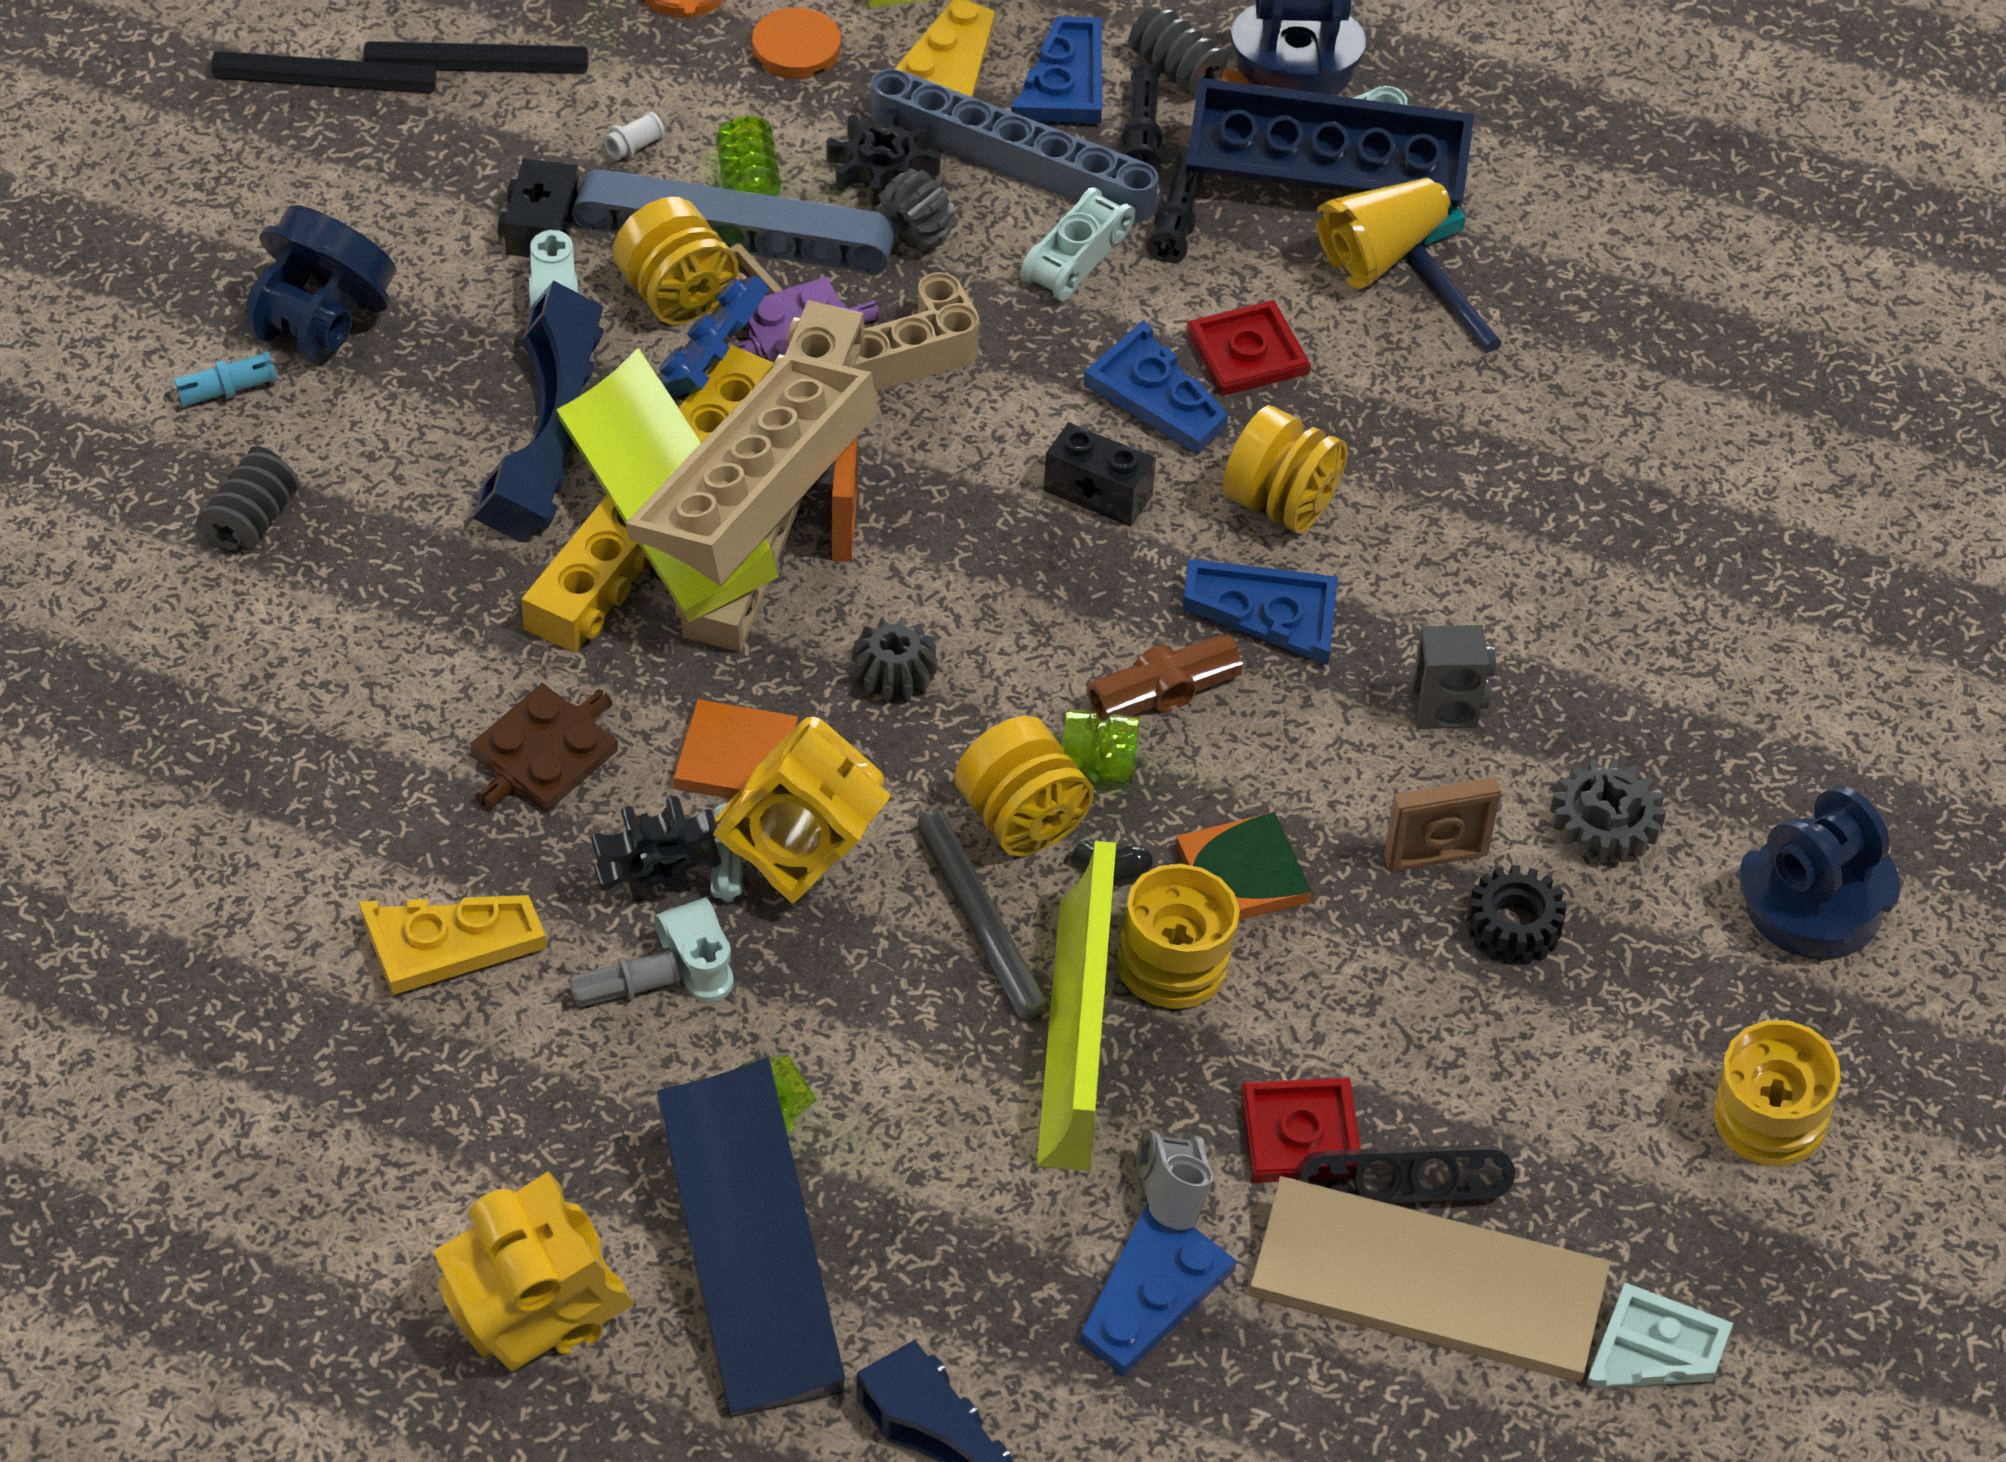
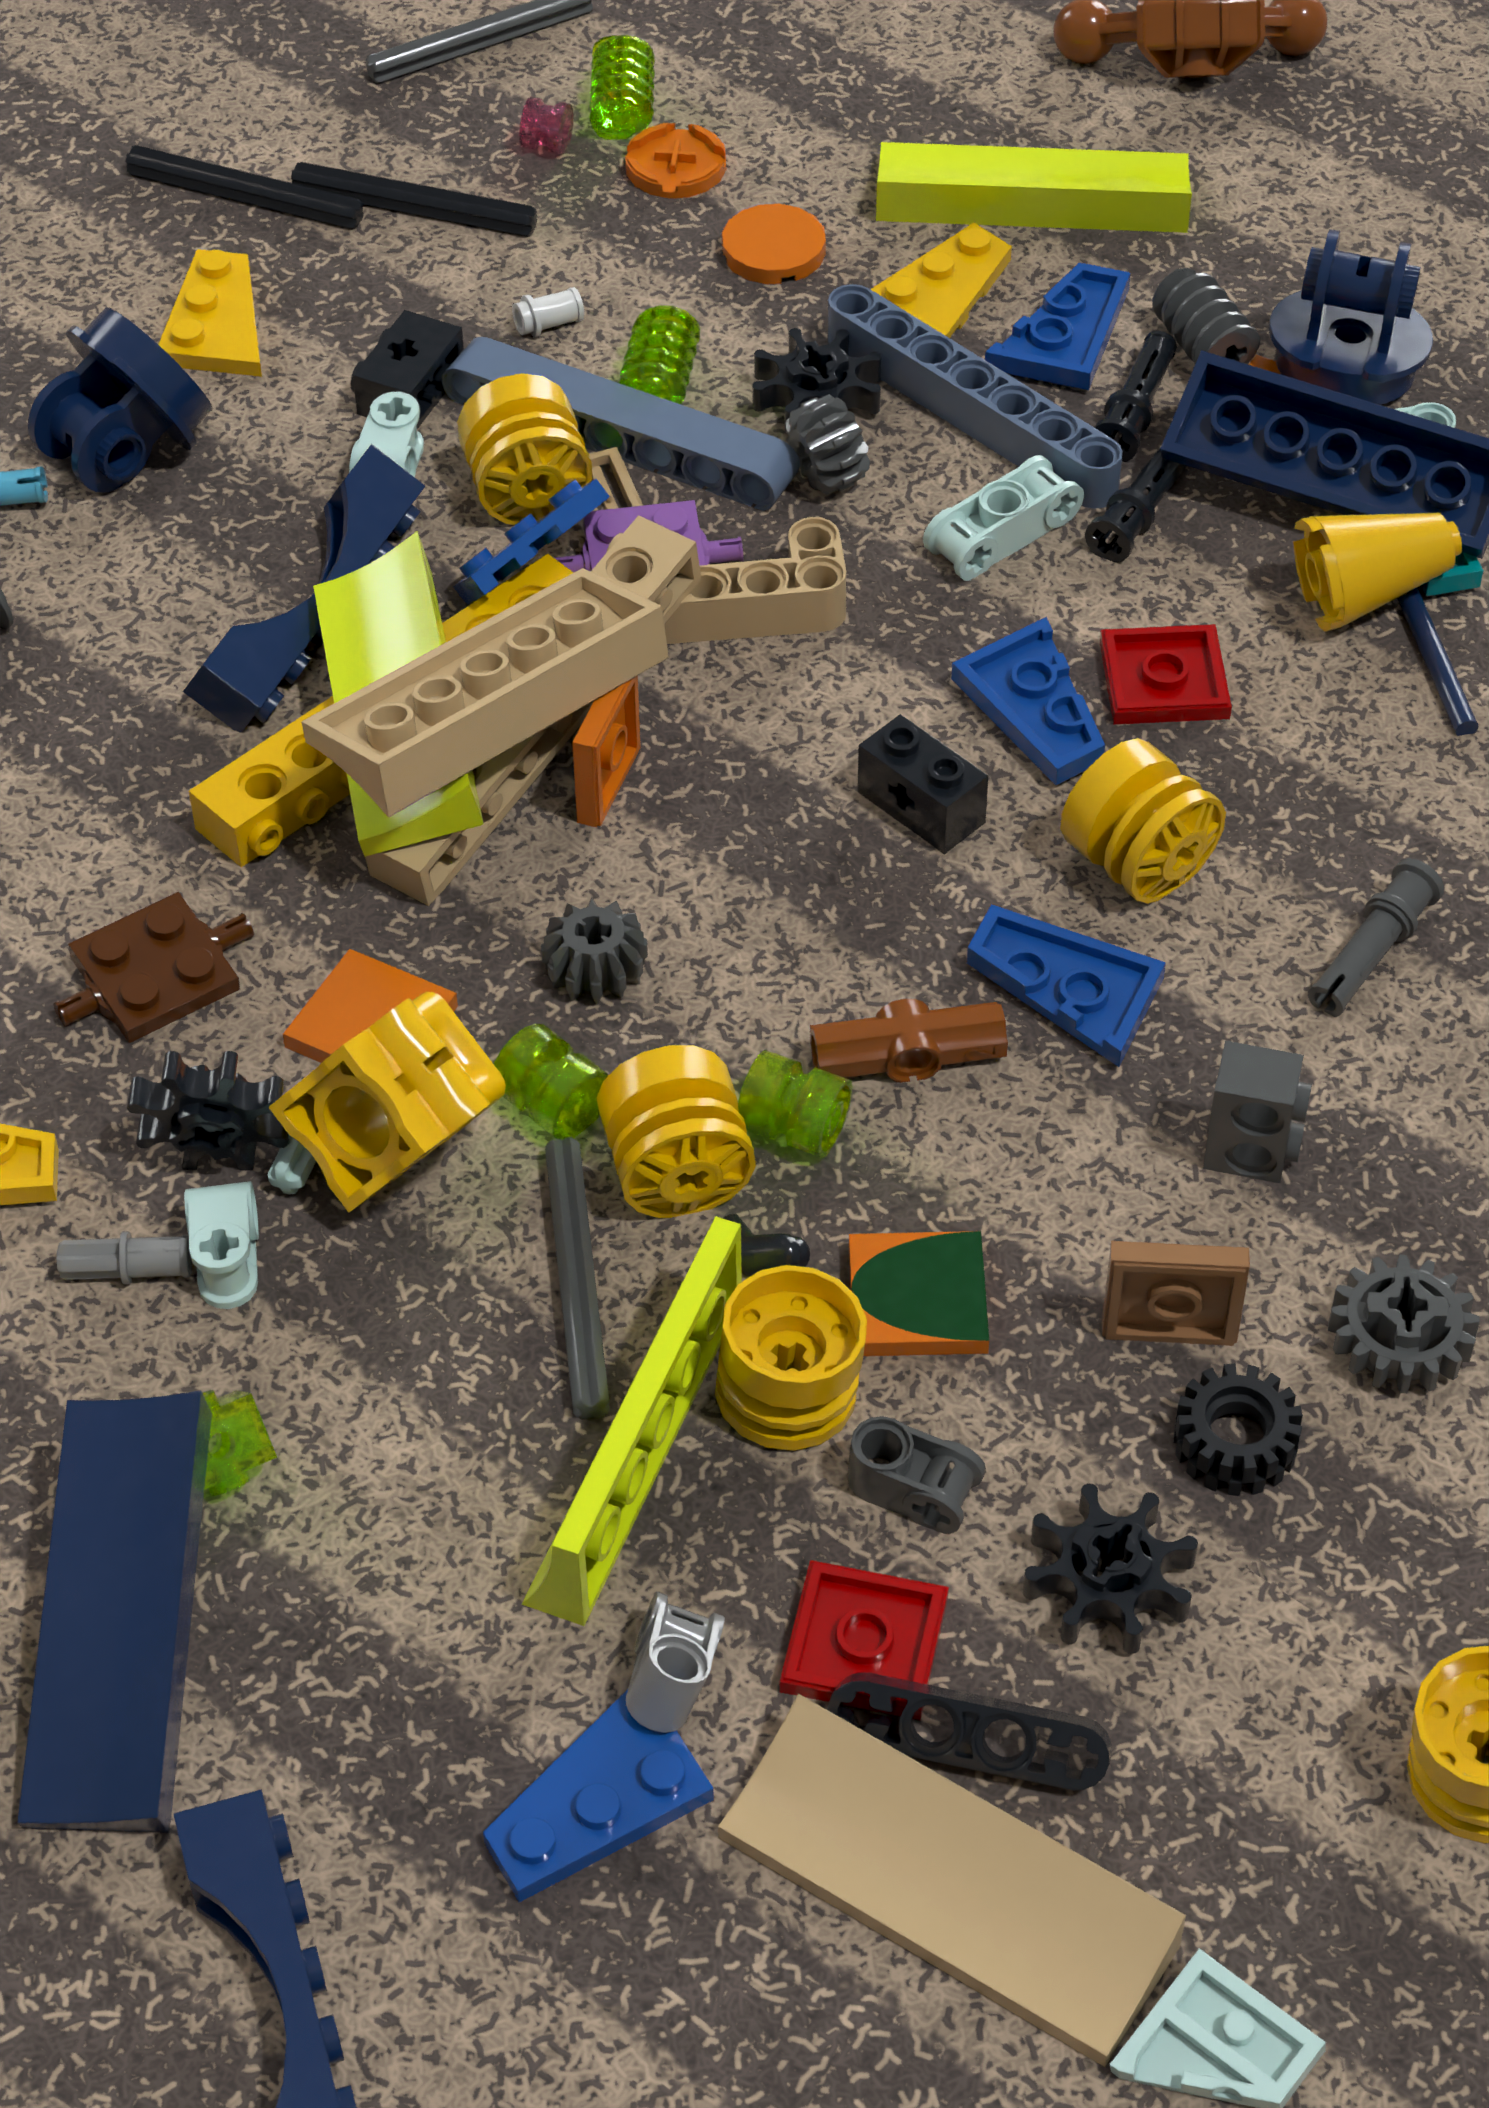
camera: 20 degrees right, 0 degrees up
(352, 187) = (215, 317): none -> yellow wing
(910, 771) = (550, 1081): none -> clear neon green wheel
(1293, 1001) = (917, 1472): none -> dark grey piece
(1482, 1044) = (1124, 1585): none -> black gear
(1489, 508) = (1388, 919): none -> dark grey pin

